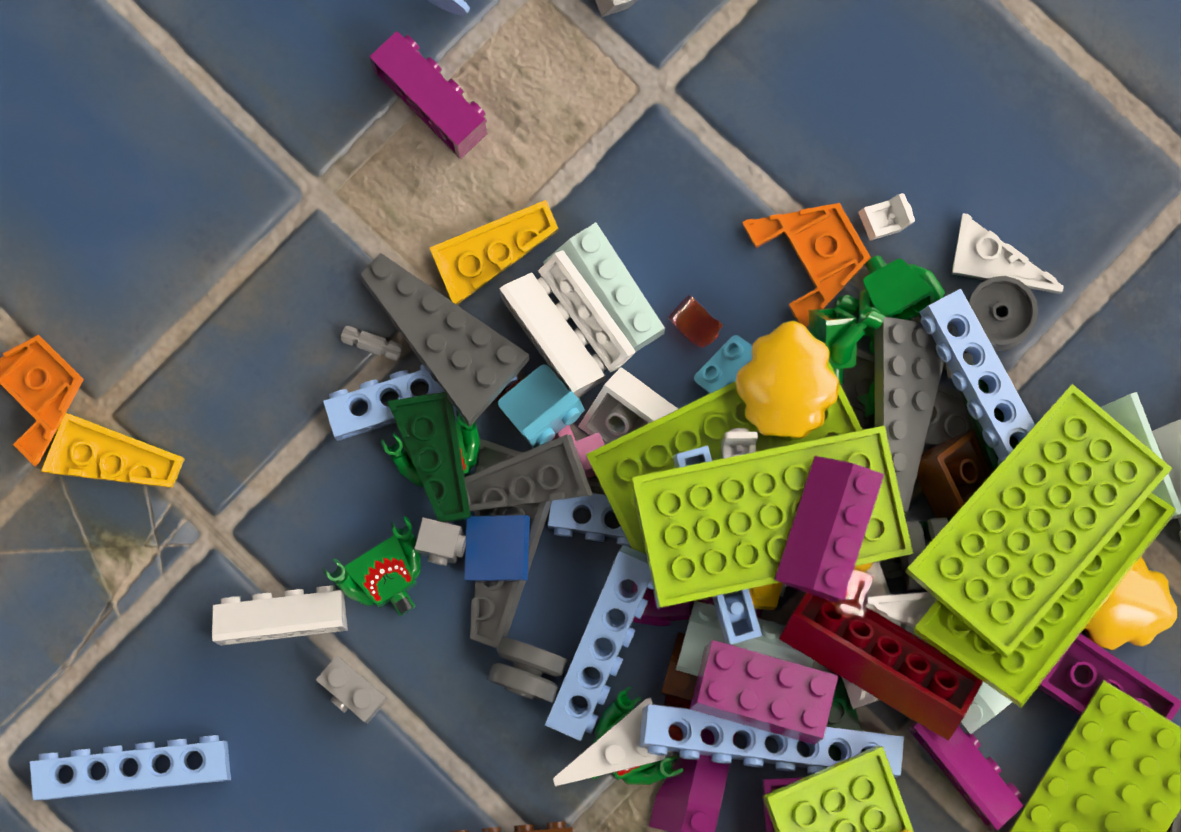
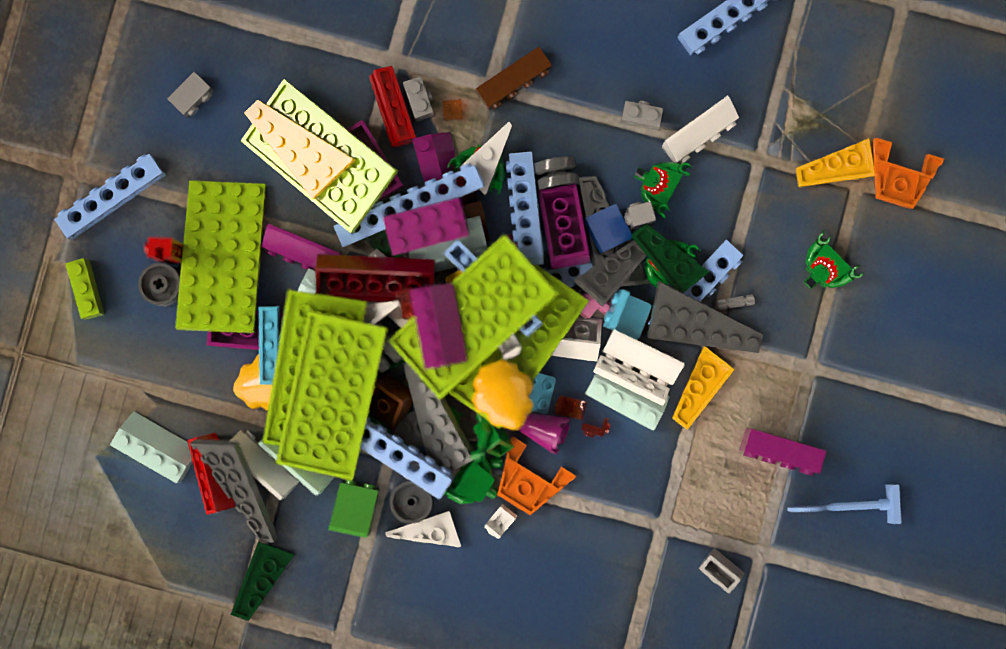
camera: 150 degrees right, 5 degrees up
(210, 319) = (827, 266): none -> green torso
(560, 585) = (564, 226): none -> magenta brick
(684, 273) = (591, 431): none -> clear red bracket
(748, 306) = (546, 430): none -> magenta cone
(1089, 652) = (268, 342): none -> medium azure tile
(1090, 346) = (354, 508): none -> bright green slope

